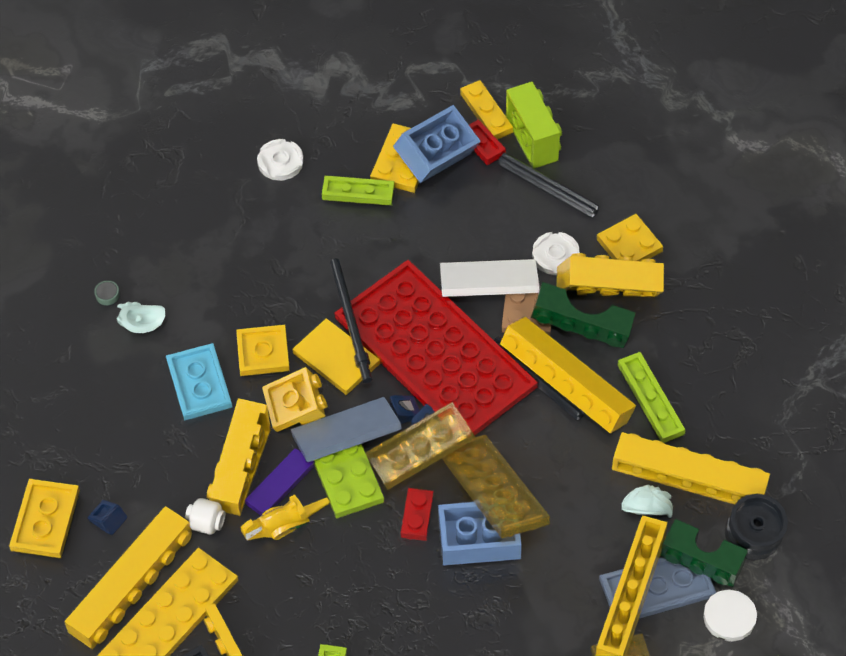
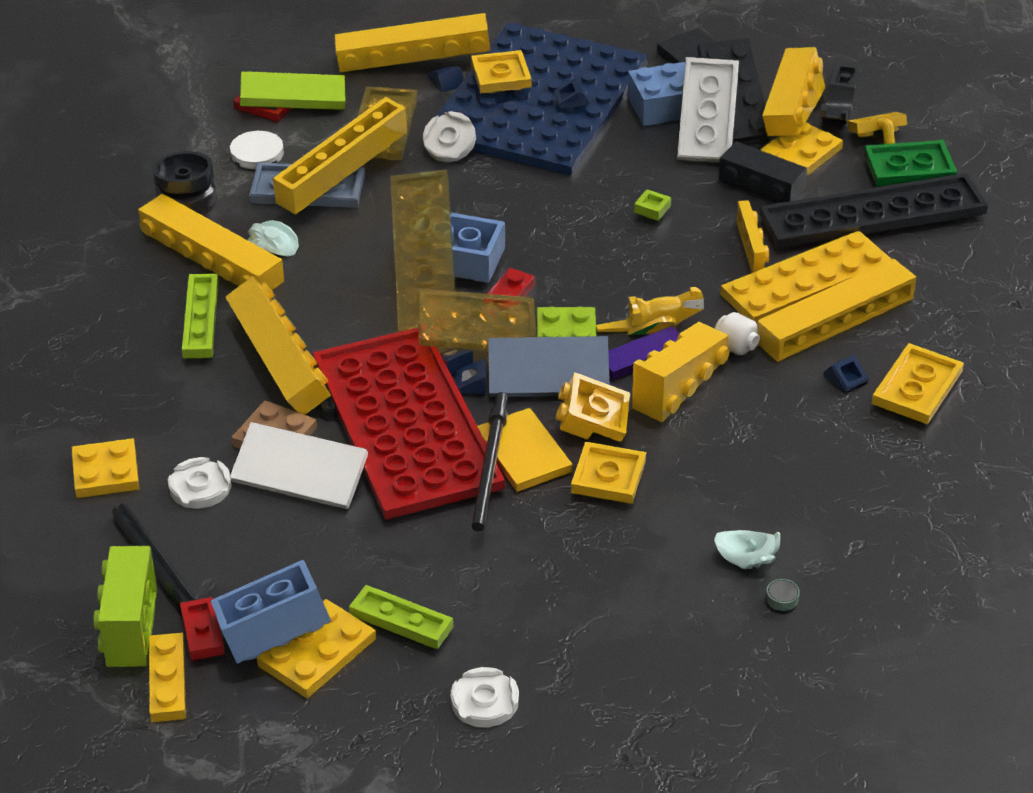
camera: 160 degrees left, 15 degrees down
(199, 381) = (697, 470): medium azure tile -> none
(555, 309) = (197, 379): dark green arch -> none
(610, 276) = (168, 416): yellow wedge -> none
(721, 565) = (240, 163): dark green arch -> none

